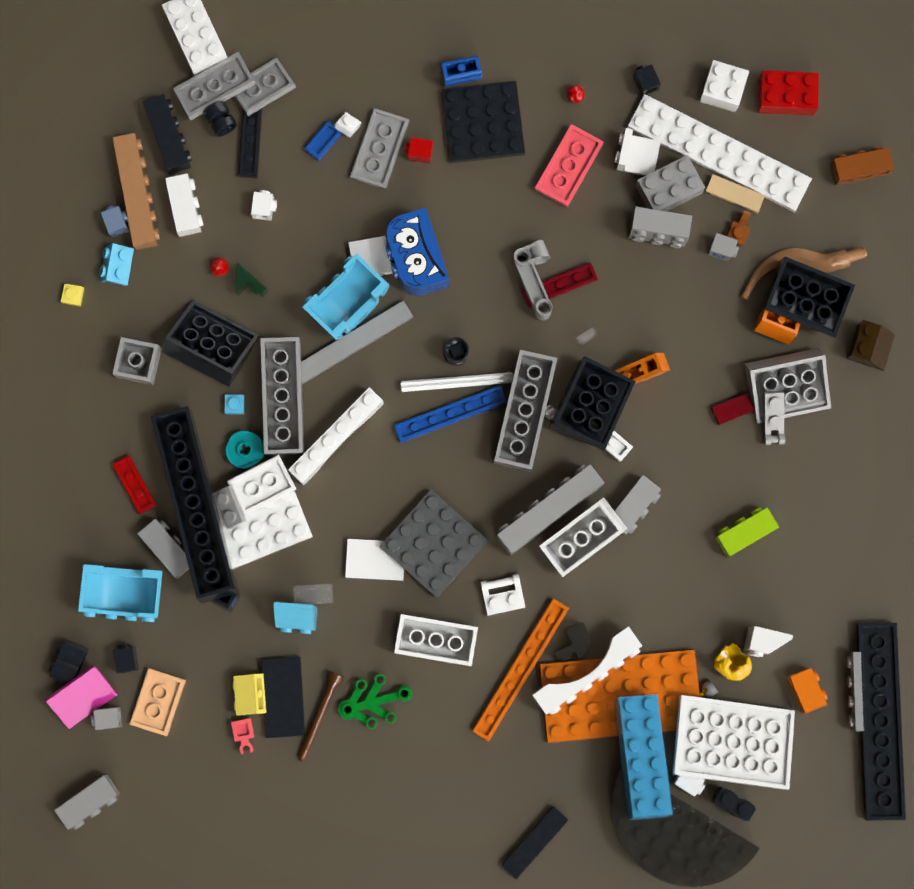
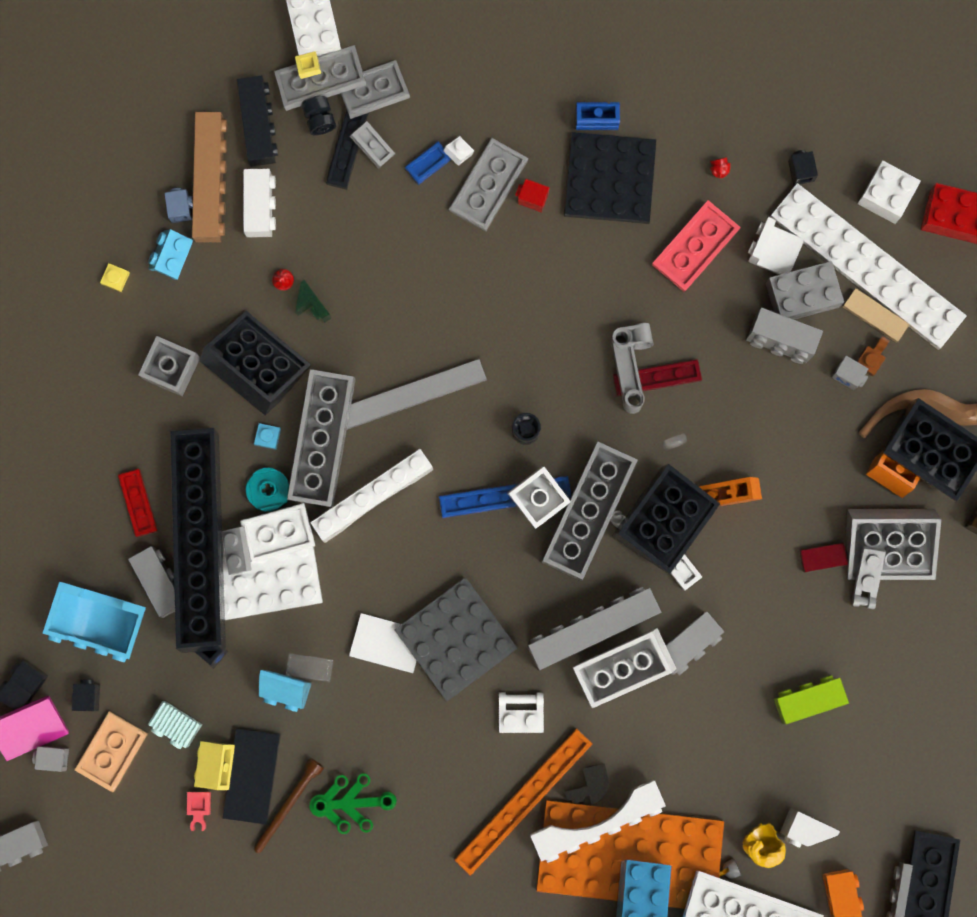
camera: 15 degrees right, 0 degrees up
(202, 76) = (308, 65): none -> light yellow plate
(207, 667) = (174, 725): none -> light aqua brick
(263, 205) = (346, 221): white brick -> none
(272, 134) = (372, 144): none -> light grey plate
(347, 298) = (417, 344): medium azure cylinder -> none
(373, 253) = (452, 303): white tile -> none
(416, 254) = (503, 310): blue brick -> none
(436, 640) = (435, 749): white brick -> none
(459, 381) = (519, 462): white axle -> none
(479, 407) = (539, 497): none -> white slope

